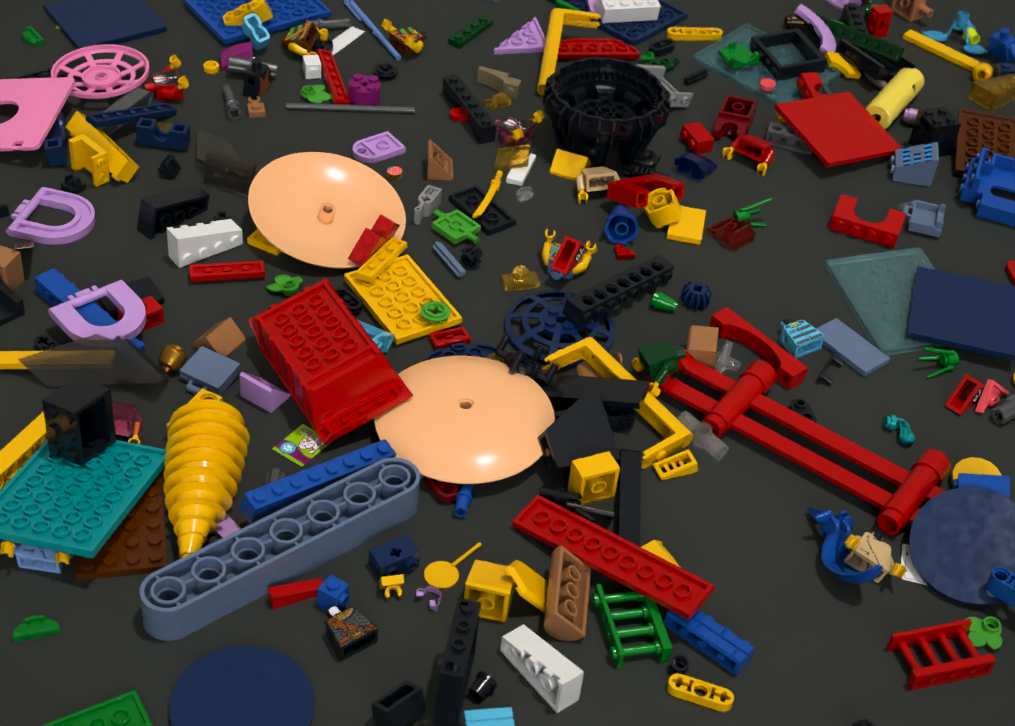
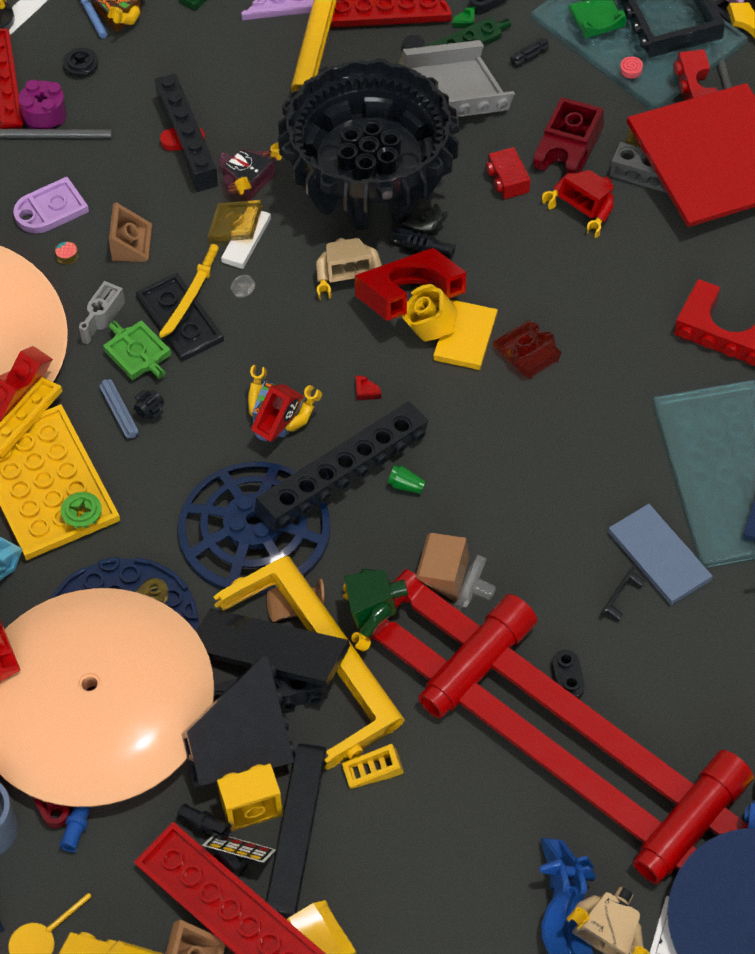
camera: 10 degrees right, 15 degrees up
(445, 338) = (101, 550): red tile -> none
(498, 100) = (234, 111): clear yellow plate -> none
(499, 81) = (239, 75): dark tan slope -> none
(518, 362) = (197, 601): black plate -> none
(520, 279) = (212, 443): clear yellow tile -> none
(568, 164) = (314, 230): yellow slope -> none
(621, 225) = (366, 343): blue cone -> none
(696, 164) = (498, 222): clear blue slope -> none
(696, 295) = (453, 467): dark blue gear -> none
(703, 435) = (424, 728): clear piece -> none
(744, 215) = (548, 318): green plant -> none
(788, 369) = (490, 520): red arch -> none
(800, 337) = (588, 542): medium azure torso -> none
(906, 435) = (707, 711): teal piece -> none

